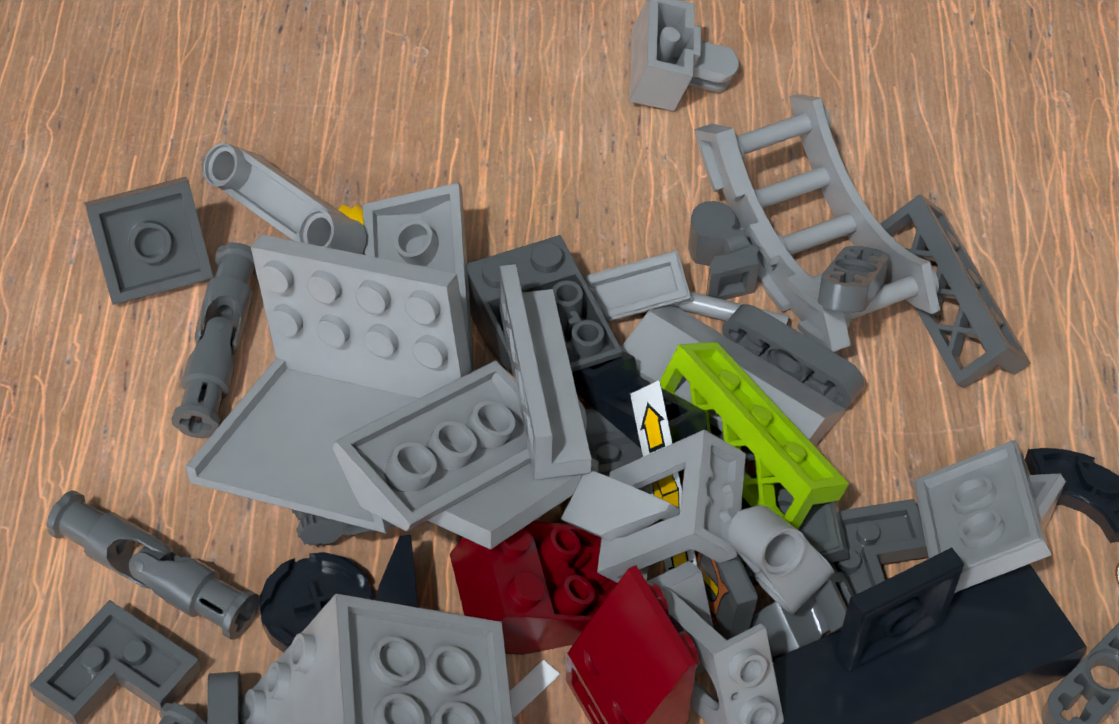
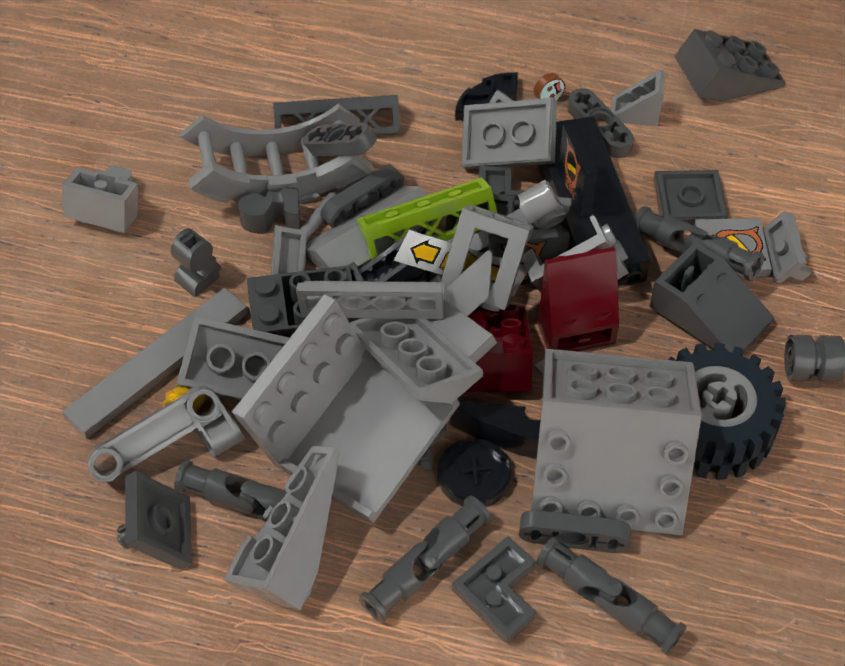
camera: 75 degrees left, 0 degrees up
(121, 382) = (288, 548): none -> light grey wedge
(391, 174) = (146, 368): none -> light grey tile
(589, 178) = (198, 264): none -> dark grey leg

